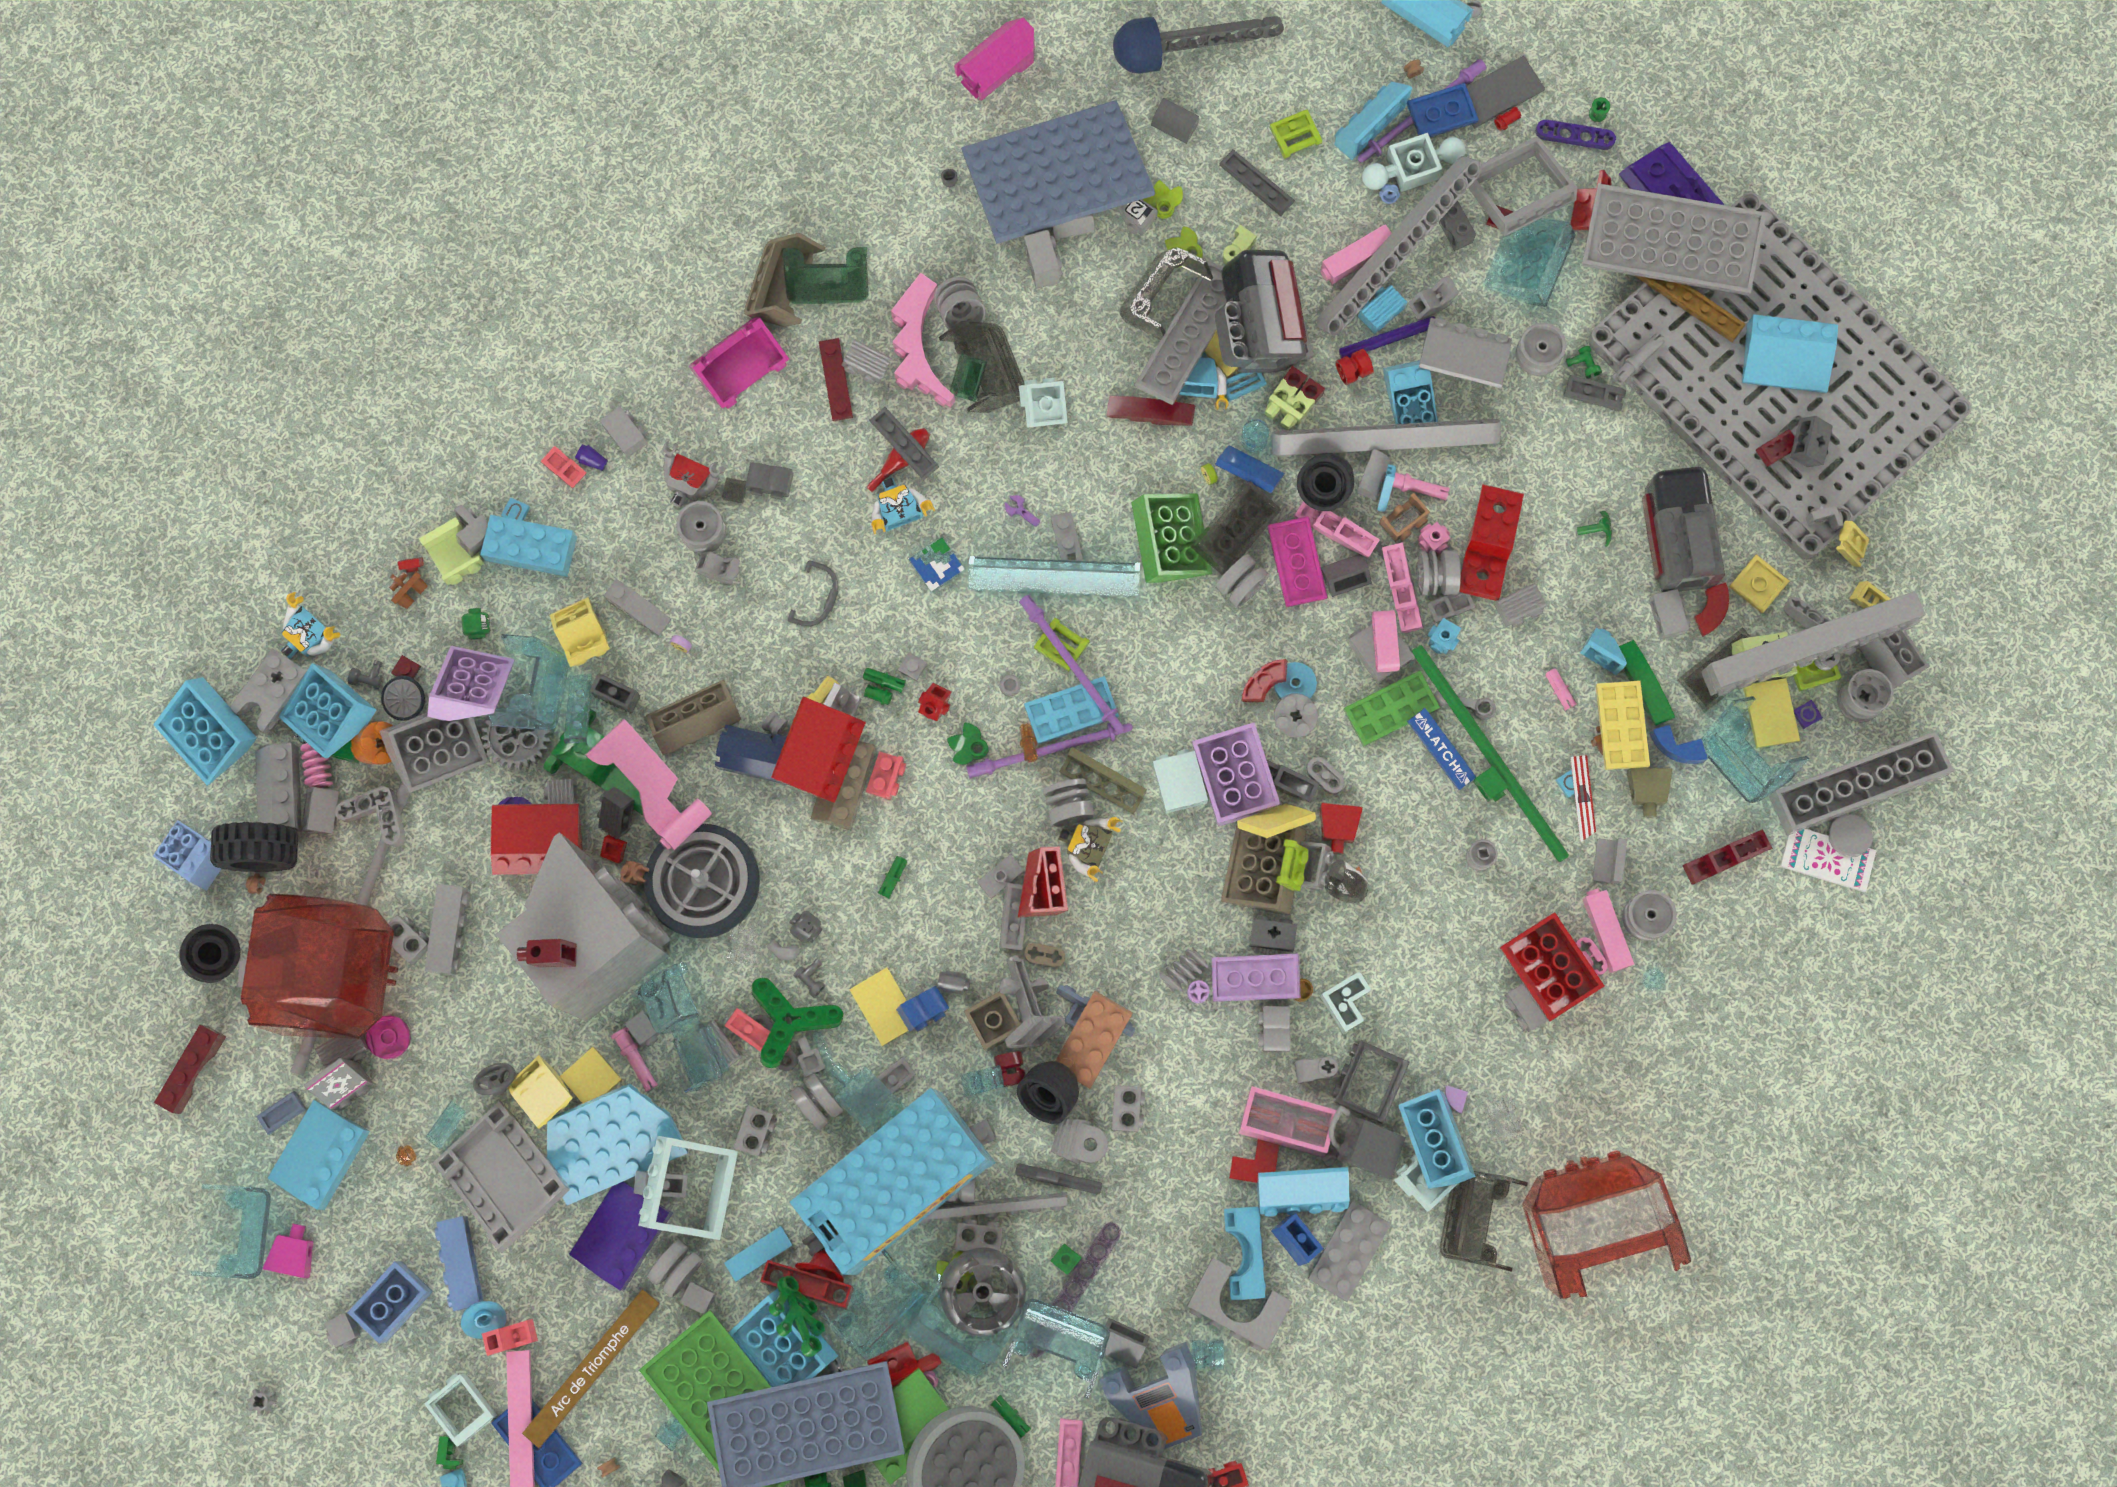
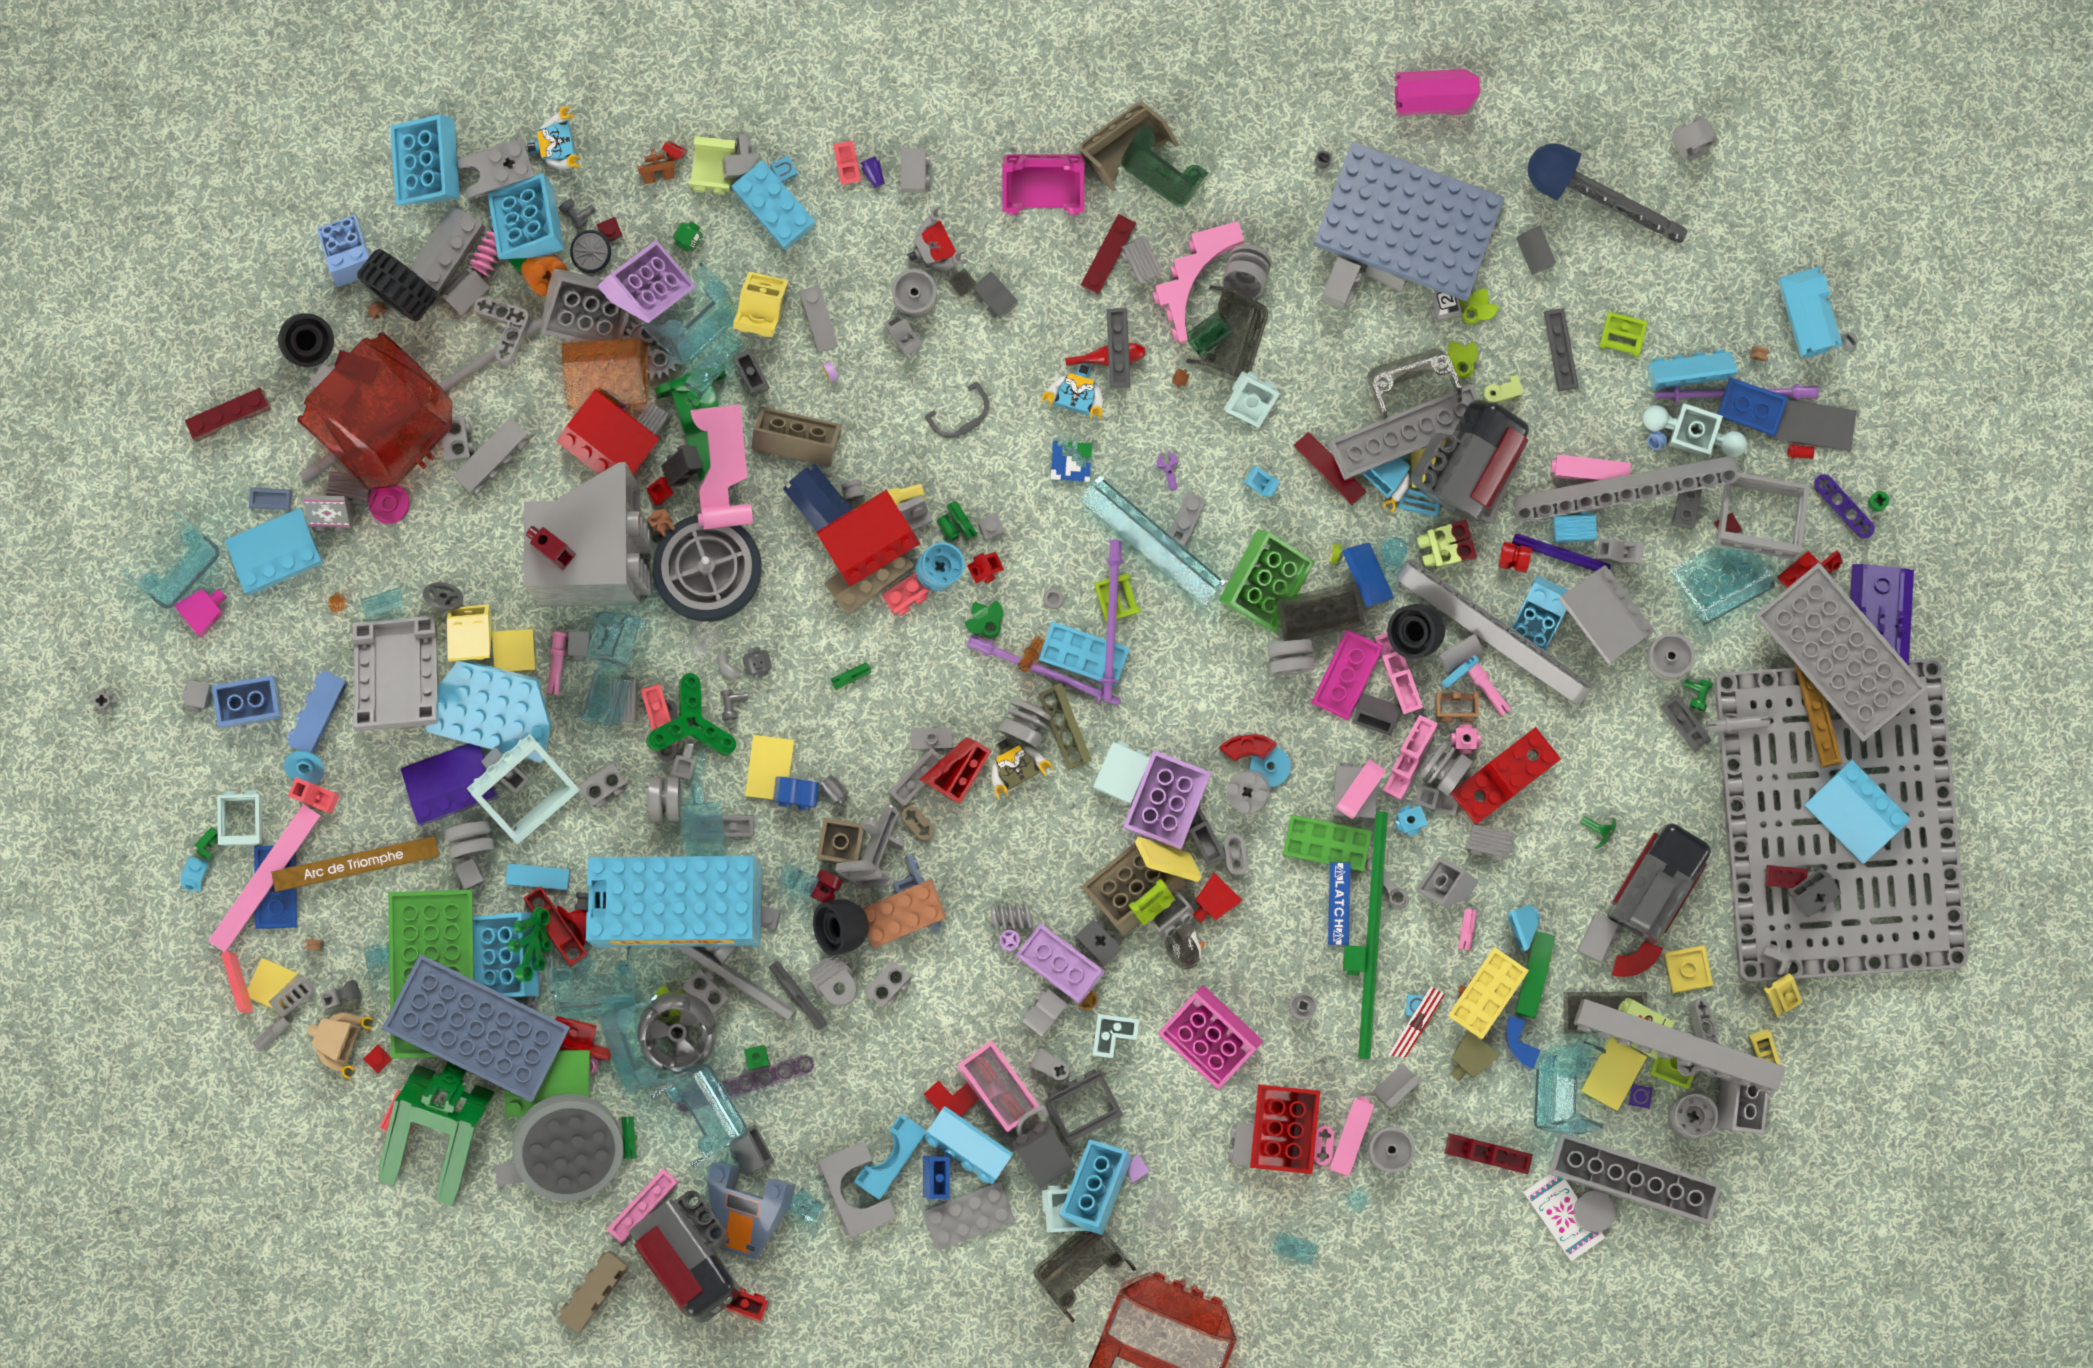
camera: 35 degrees right, 5 degrees up
(489, 777) = (611, 366): none -> clear orange slope
(896, 718) = (950, 561): none -> medium azure wheel
(972, 431) = (1180, 377): none -> dark orange plate
(1104, 463) = (1261, 482): none -> medium azure bracket
(1427, 940) = (1210, 1037): none -> dark pink slope
(1514, 664) = (1447, 883): none -> light grey slope
(1637, 1060) = (1294, 1247): none -> clear light blue plate

